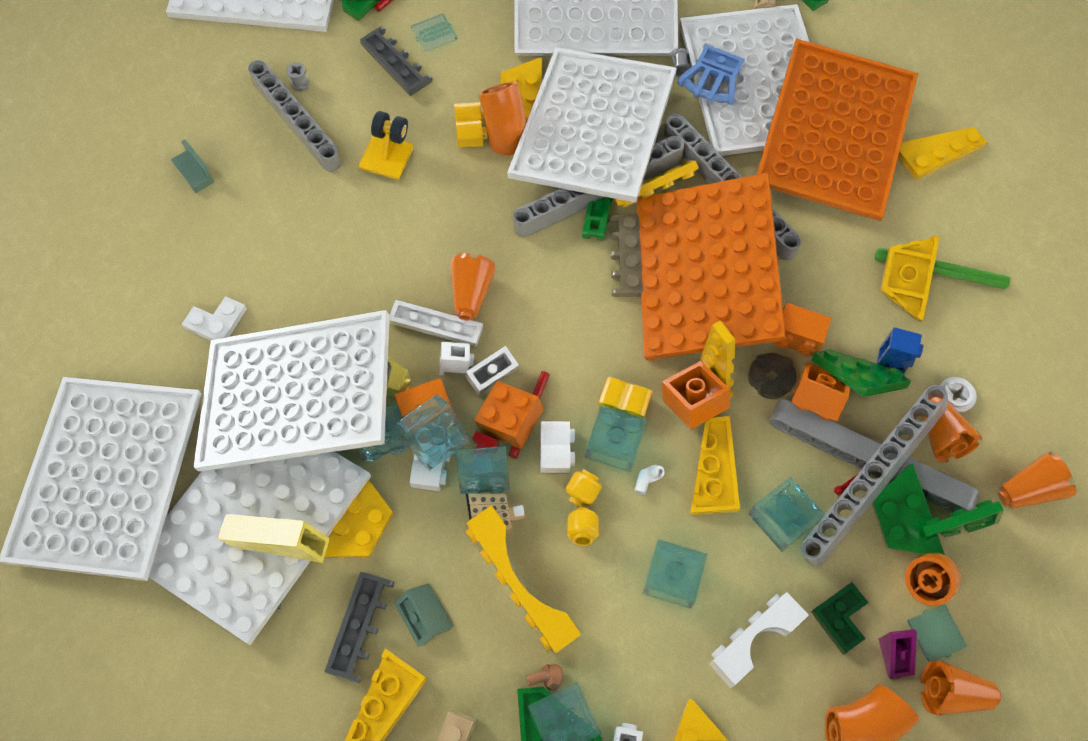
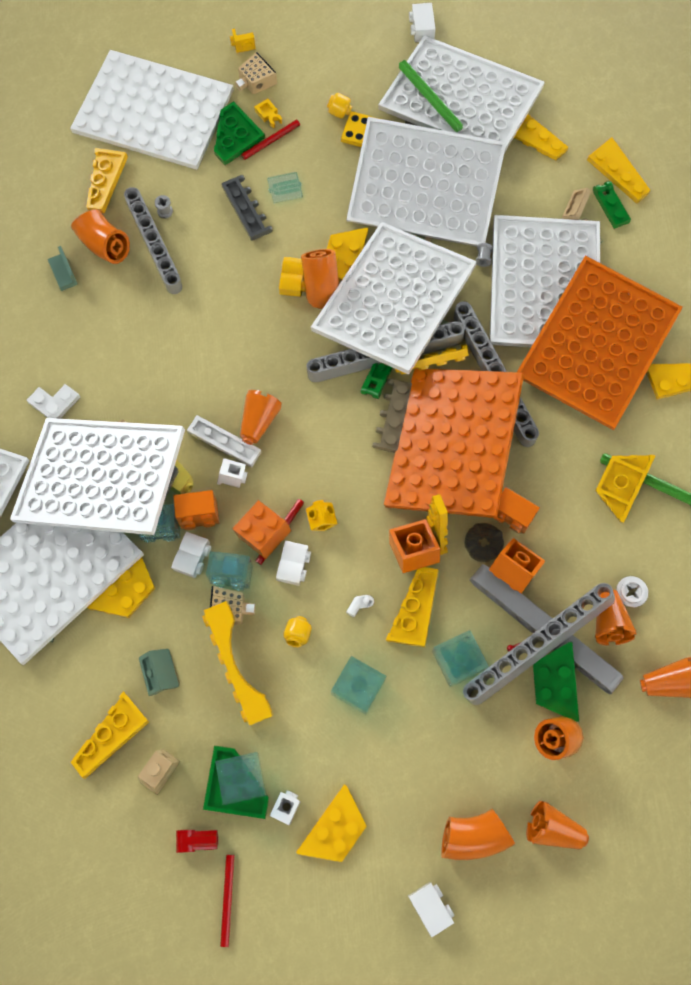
camera: 15 degrees right, 5 degrees up
(219, 58) = (106, 173): none -> yellow wing
(232, 121) = (101, 236): none -> orange brick
(275, 537) = (57, 588): slope -> none
(356, 626) = (105, 669): dark grey hinge -> none
(387, 150) = (221, 284): yellow plate -> none
(433, 432) = (195, 532): clear light blue brick -> none
(484, 441) = (237, 548): red tile -> none
(491, 370) = (257, 490): white brick -> none
(550, 675) = (242, 740): nougat plate -> none
(575, 384) = (321, 516): none -> yellow brick
(583, 488) = (306, 601): yellow head -> none
(615, 438) = (341, 567): clear light blue brick -> none
(625, 397) = (357, 536): yellow brick -> none
(717, 64) = (513, 264): medium blue plate -> none
(735, 660) = (433, 738): white arch -> none
(834, 617) = (476, 747): dark green plate -> none
(861, 375) = (554, 559): green plate -> none
(899, 652) = (518, 789): magenta slope -> none
(900, 349) = (592, 546): blue brick -> none
(937, 633) = (555, 780): clear light blue piece -> none
(983, 516) = (614, 697): green plate -> none

